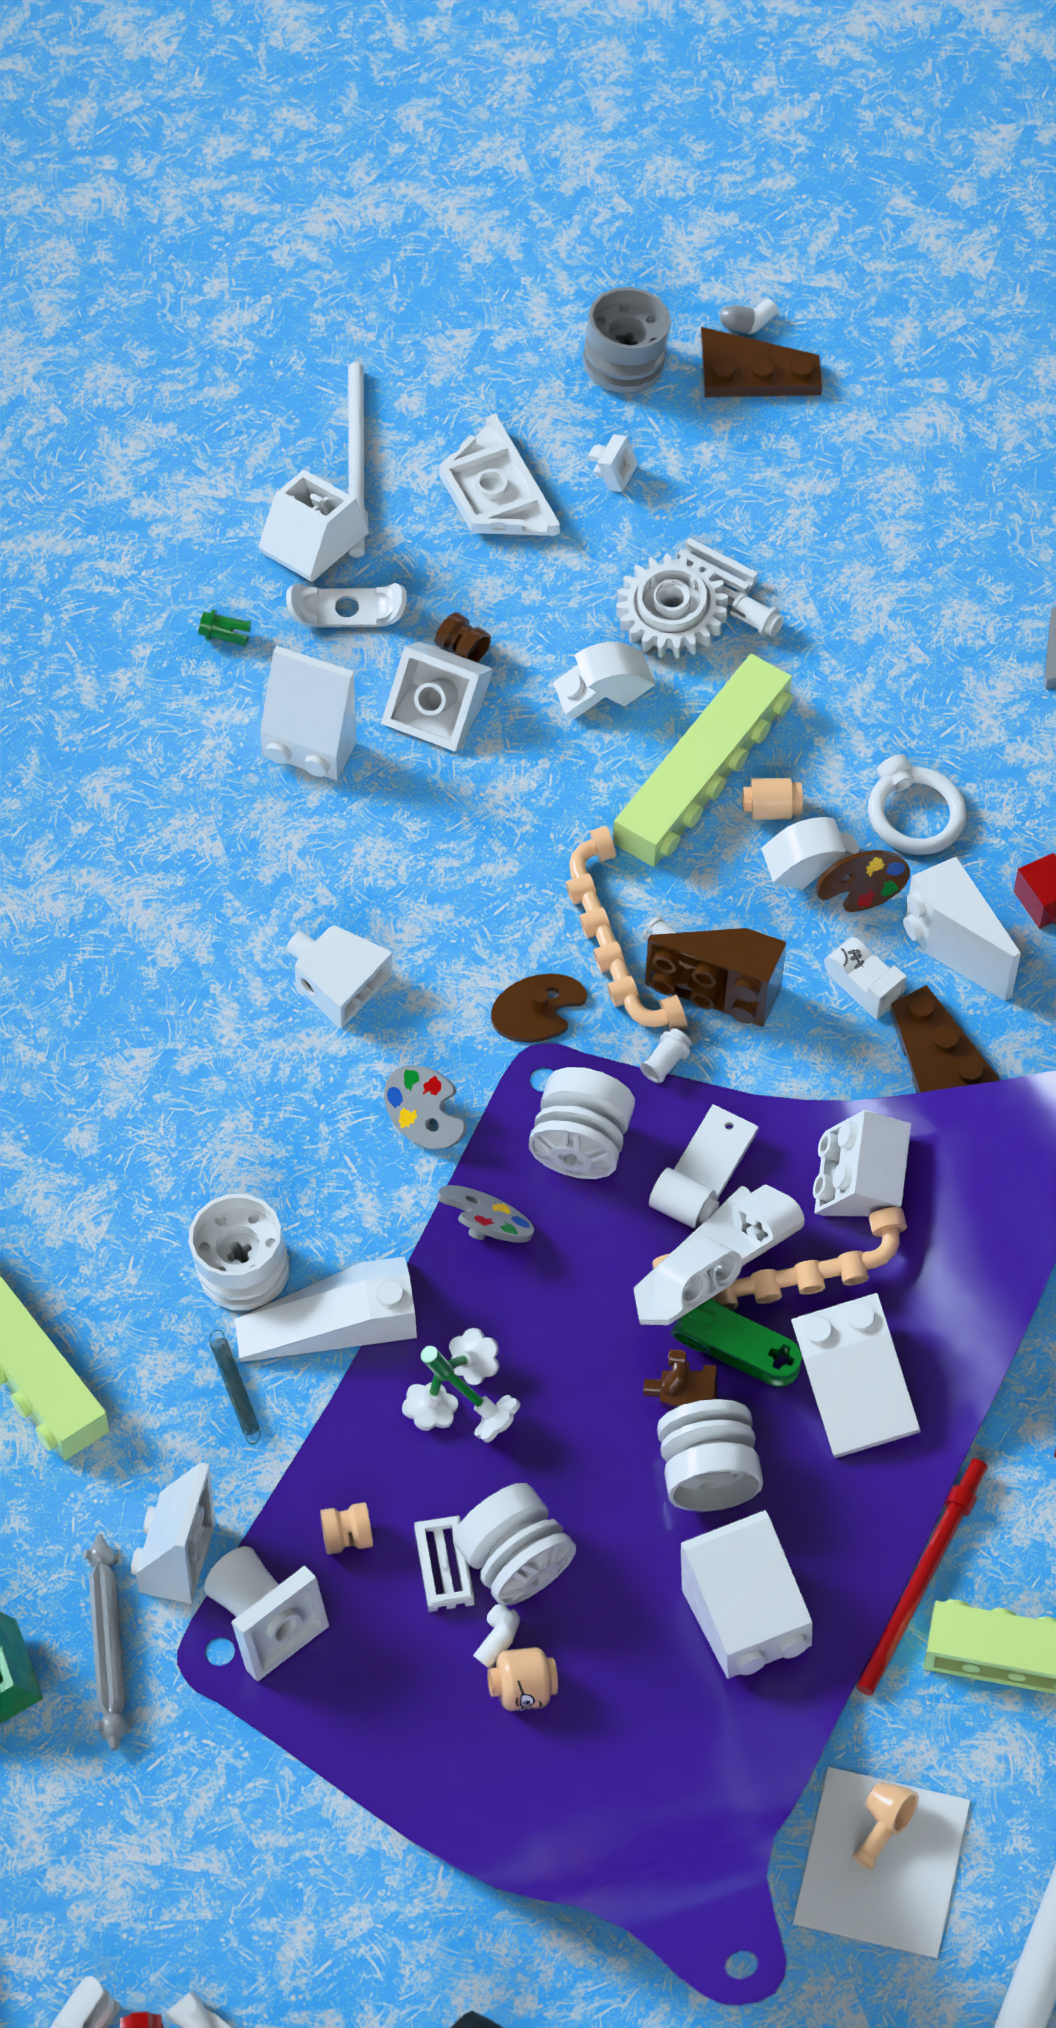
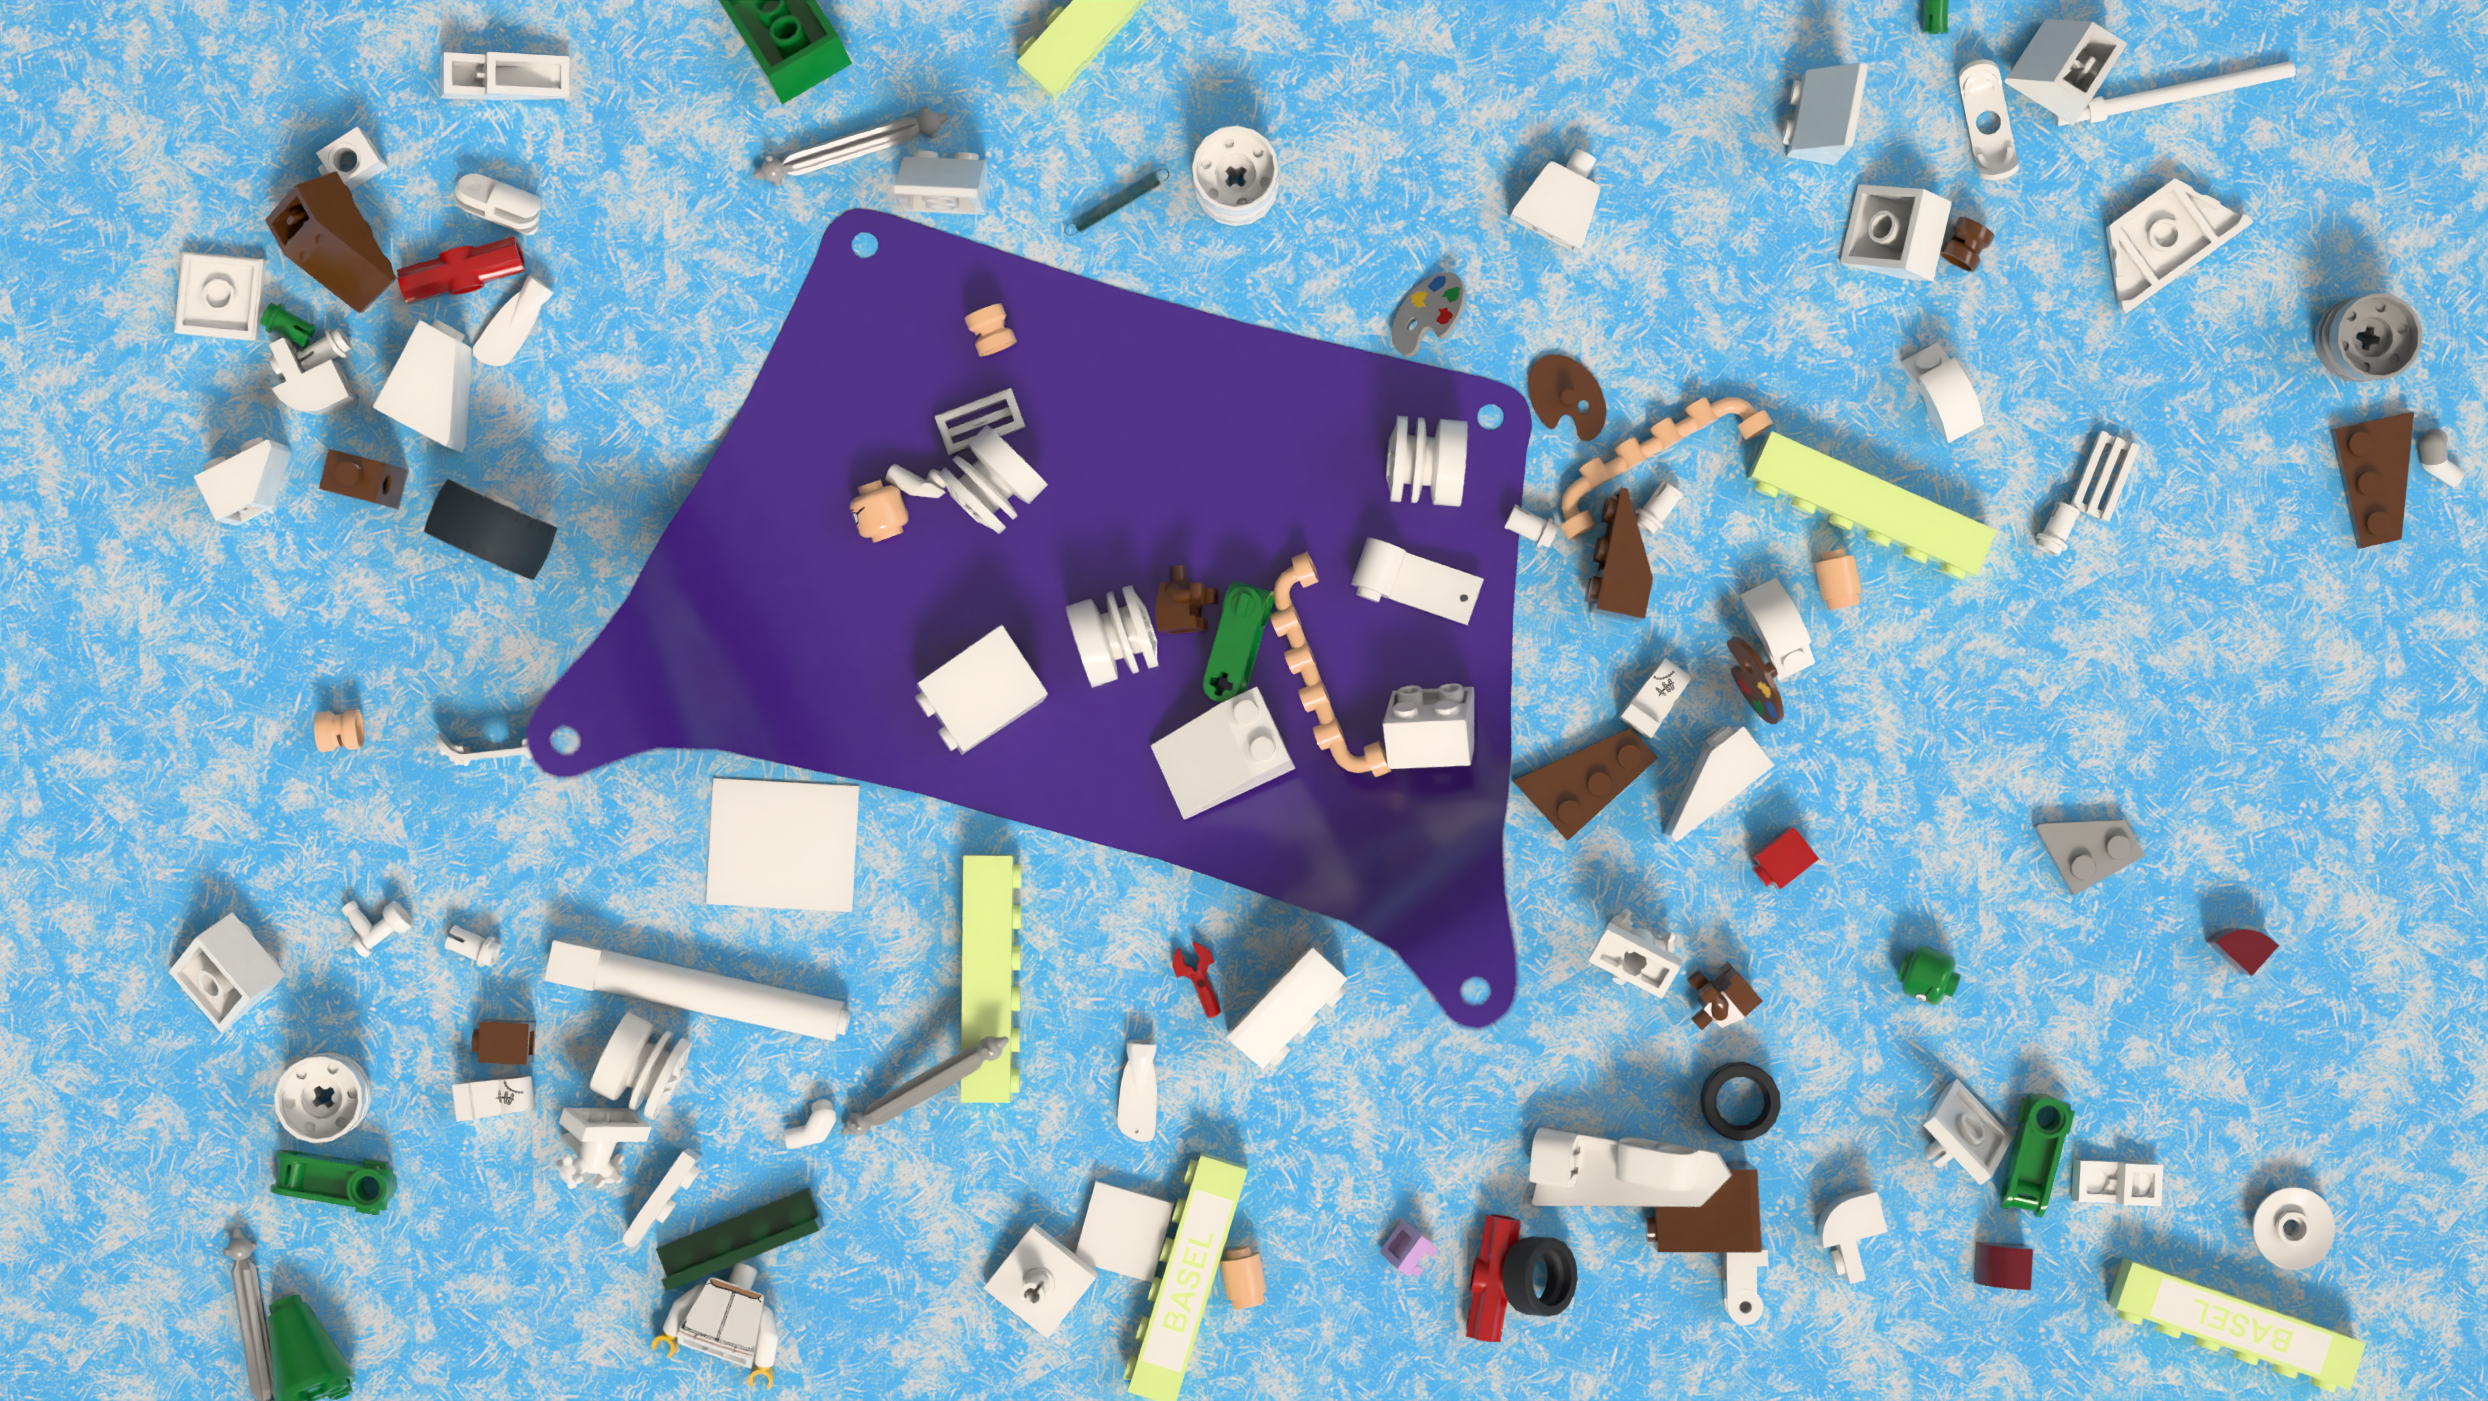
camera: 80 degrees right, 30 degrees up
(271, 1617) = (894, 273): white plant -> none
(342, 1311) = (1211, 281): white wedge -> none
(474, 1359) = (1131, 381): white plant -> none
(487, 1215) = (1321, 401): light grey piece -> none
(614, 462) = (2217, 354): white tile -> none
(647, 617) = (2070, 428): white gear -> none
(716, 1252) = (1310, 603): white panel -> none
(893, 1810) = (822, 845): light nougat bar -> none
(898, 775) = (1892, 695): white piece -> none
(958, 1504) = (1125, 864): red bar -> none

